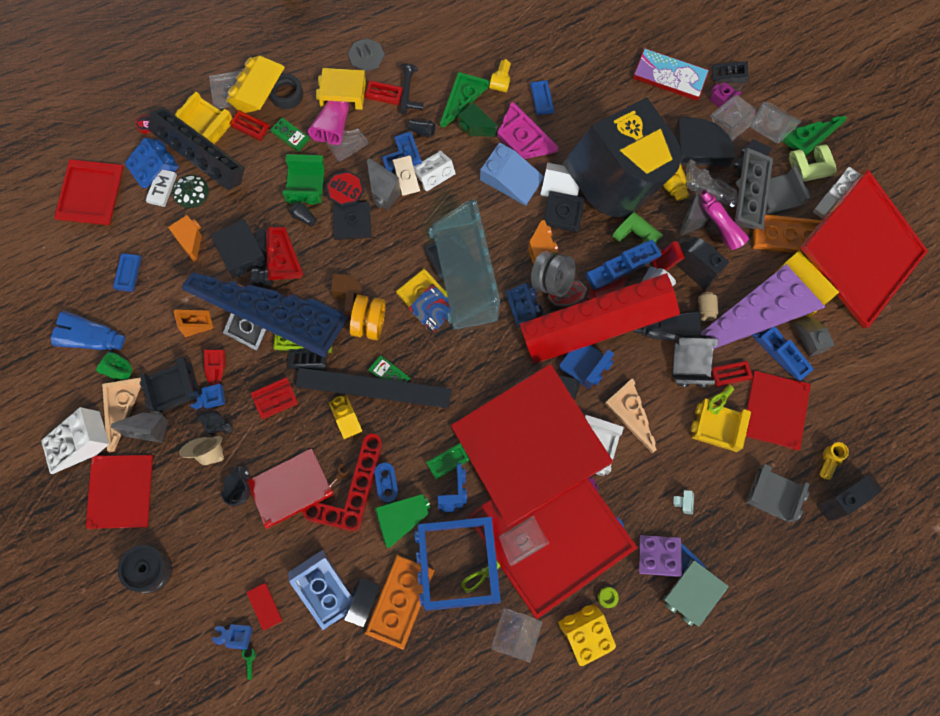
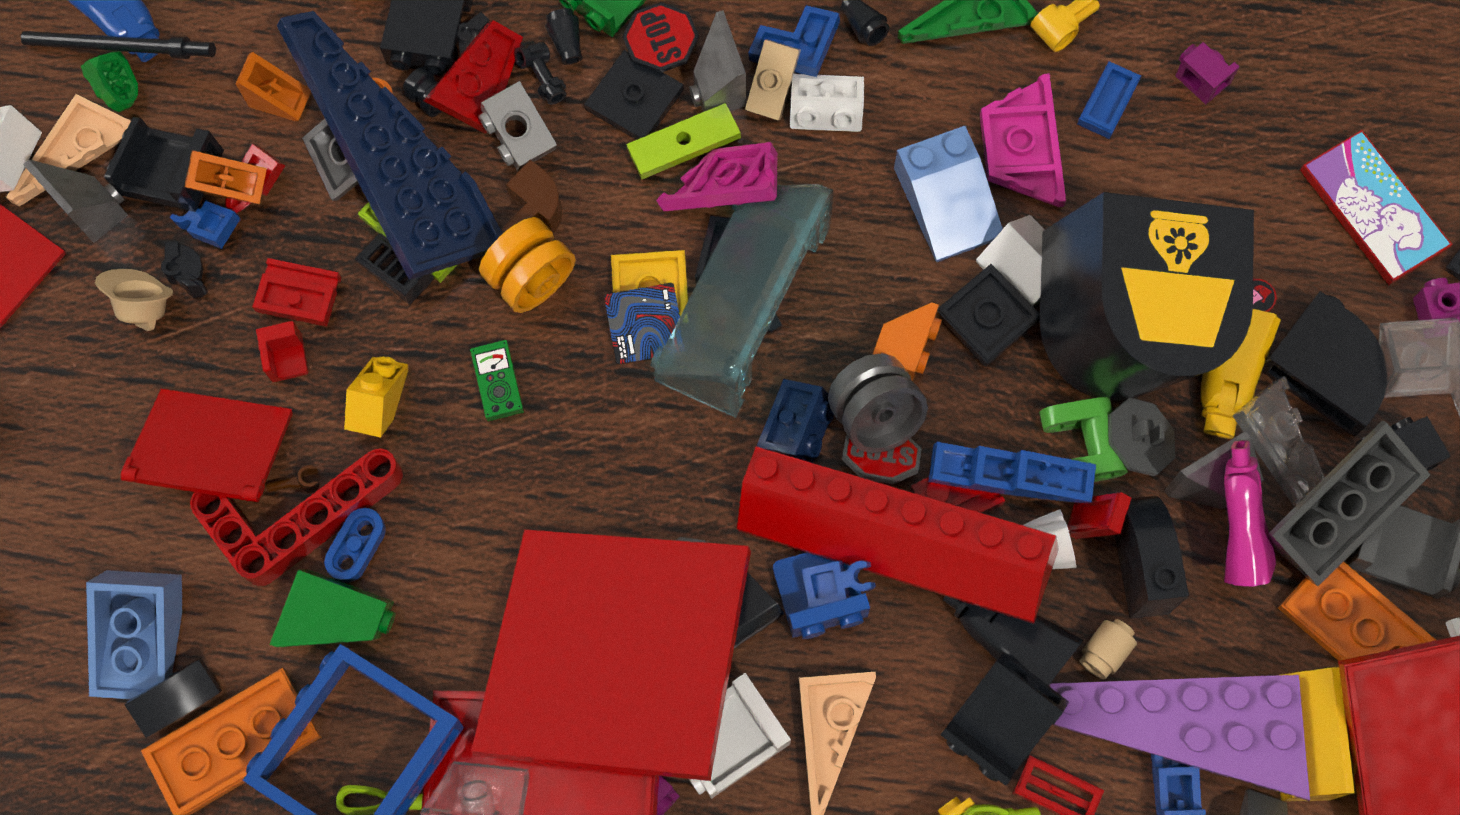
camera: 45 degrees right, 0 degrees up
(136, 331) = (176, 47): none -> black bar
(205, 371) = (225, 177): none -> orange slope
(236, 486) = (137, 385): black hair -> none
(264, 606) = (37, 596): red tile -> none
(289, 427) = (282, 351): none -> red panel
(297, 231) = (535, 56): none -> black bar
(326, 264) = (510, 105): none -> light grey brick
(374, 388) = (456, 386): black tile -> none
(393, 216) = (702, 131): none -> lime tile
(421, 226) = (727, 178): none -> dark pink wing
(447, 461) = (472, 582): green plate -> none
(450, 503) = (444, 648): blue bracket -> none
(476, 122) = (959, 68): dark green slope -> none
(570, 62) = (1205, 71): none -> magenta brick
(590, 356) = (832, 583): none -> blue plate
(657, 218) = (1141, 437): none -> dark grey piece

